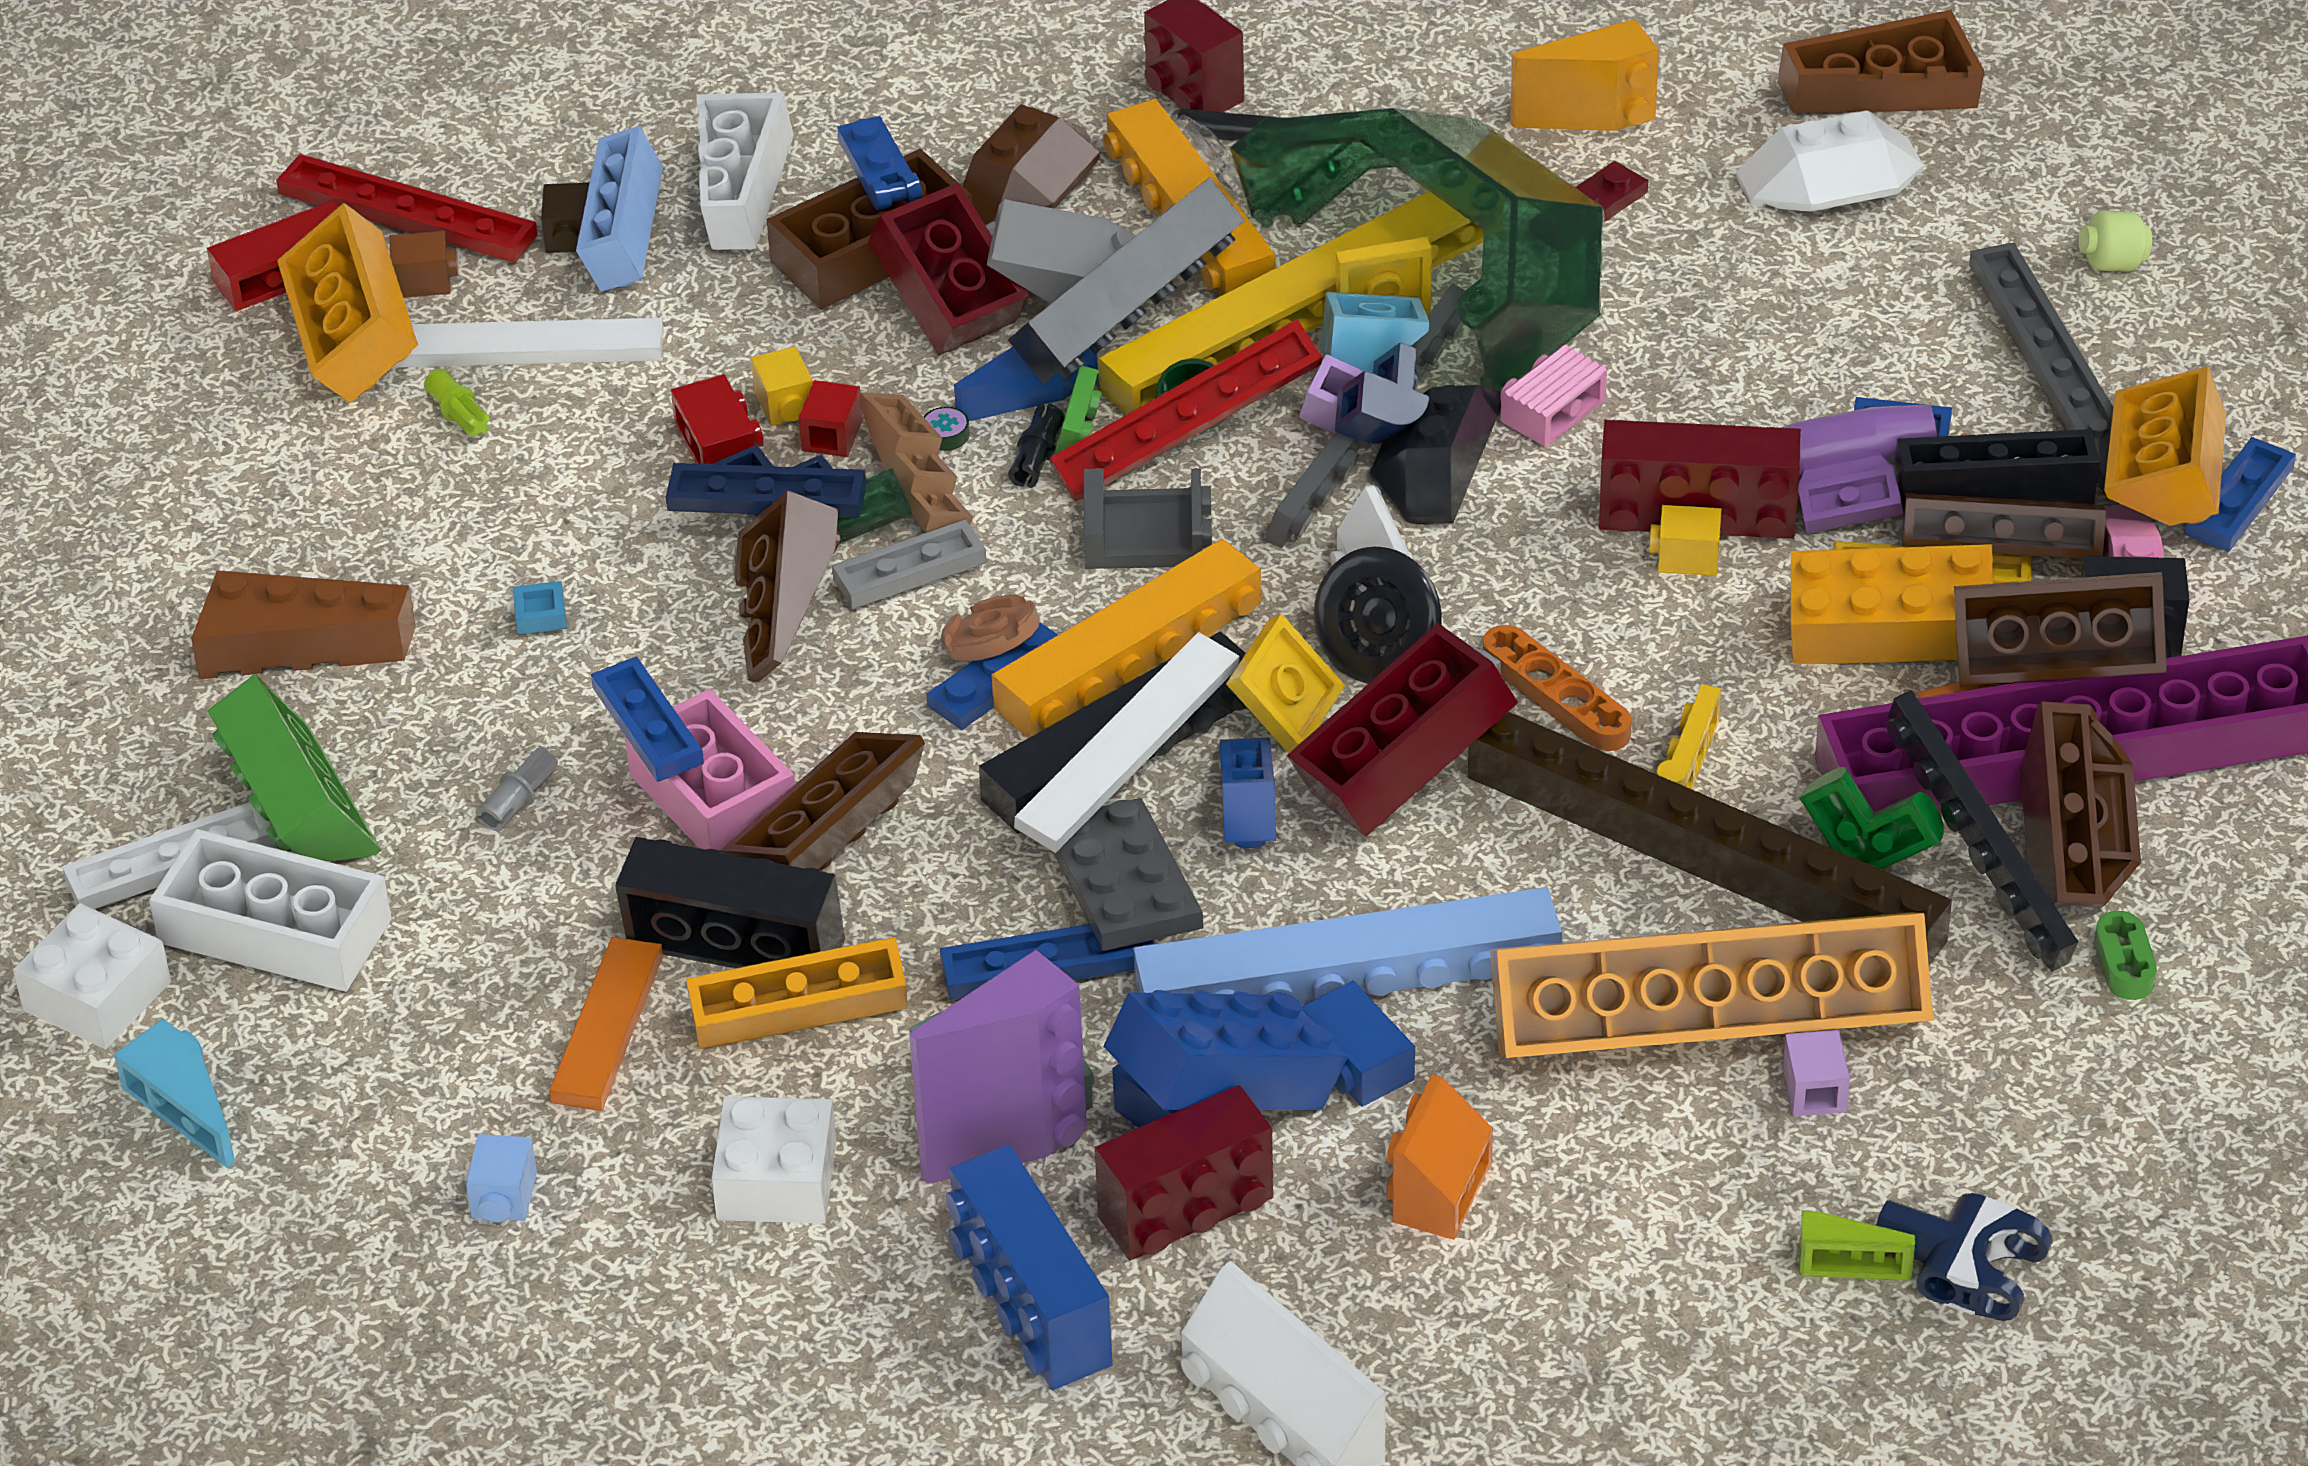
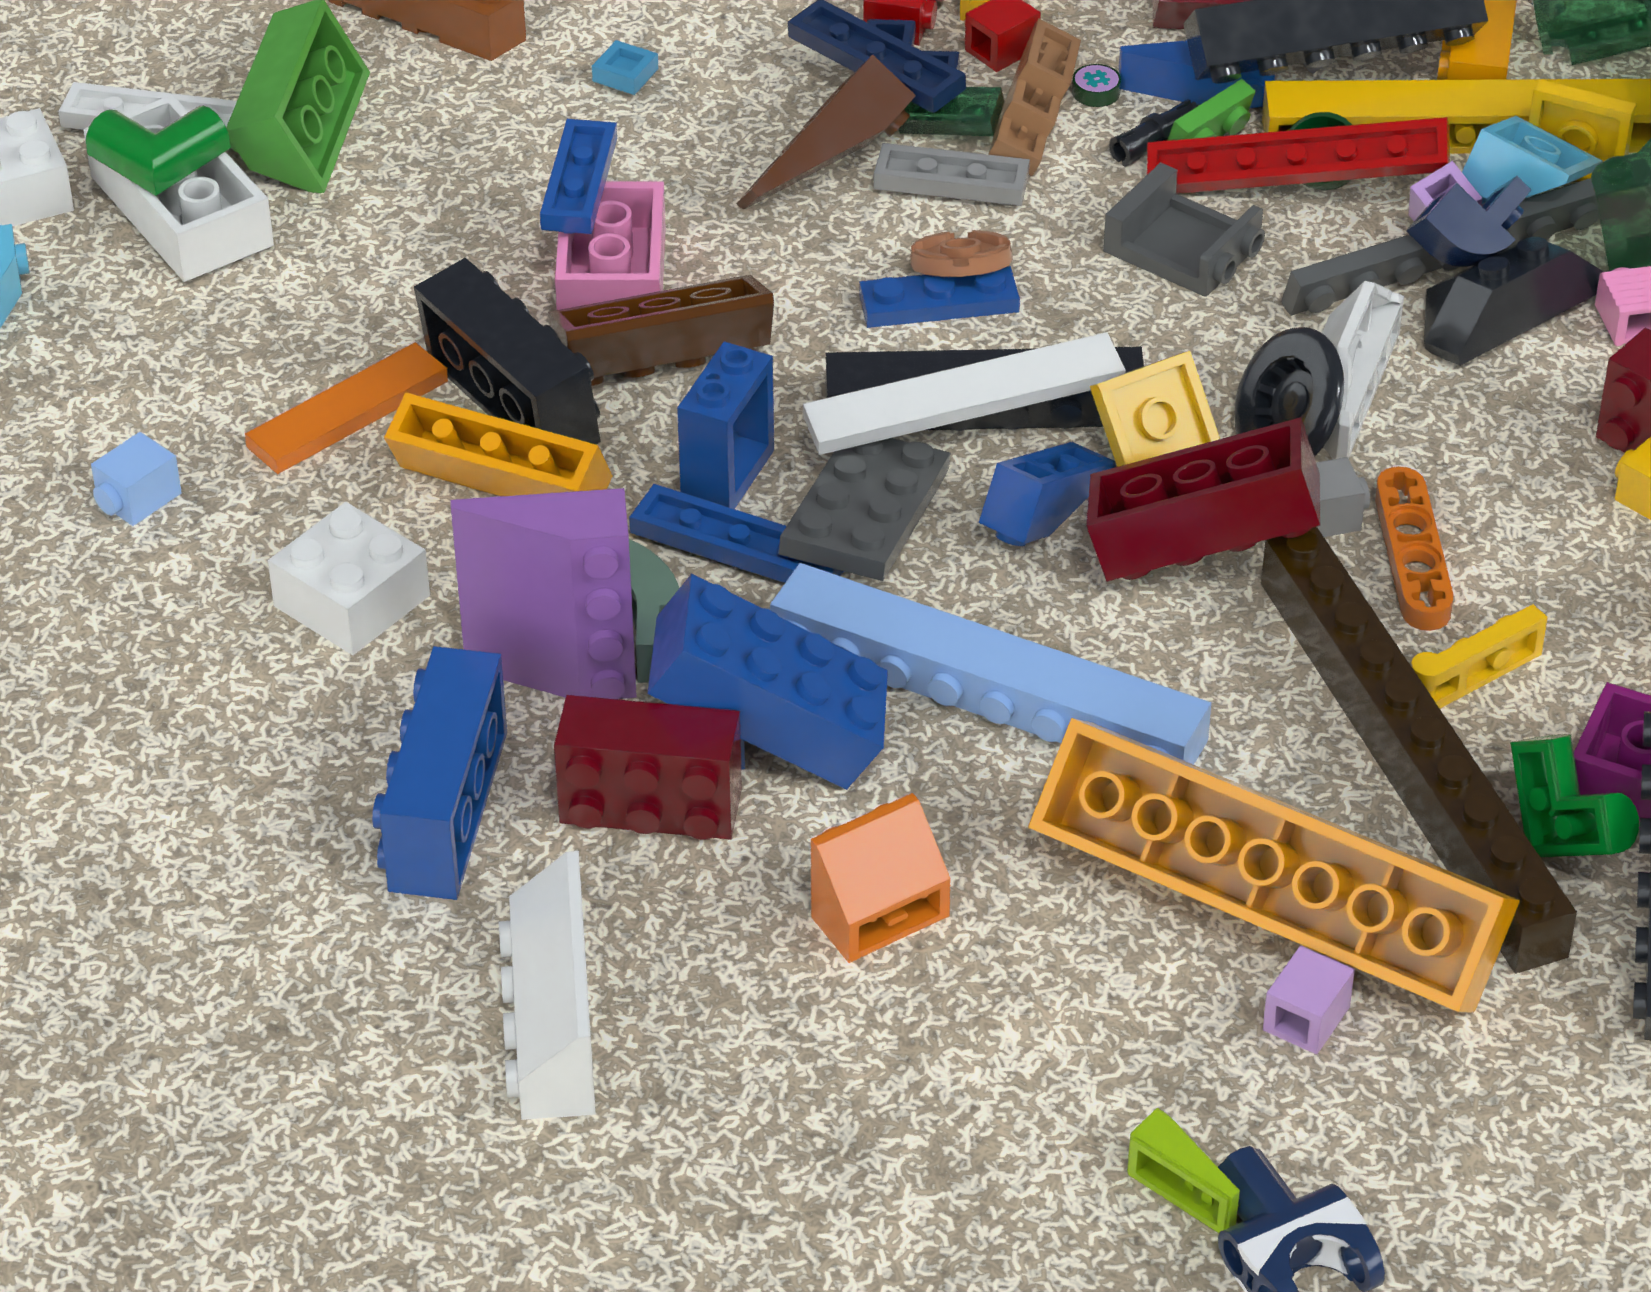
camera: 35 degrees right, 0 degrees up
(248, 894) = (157, 158): none -> green brick
(516, 790) = (465, 195): light grey axle -> none
(971, 866) = (727, 425): none -> blue window
(1127, 638) = (1148, 311): light orange brick -> none
(1377, 1049) = (919, 746): blue brick -> none

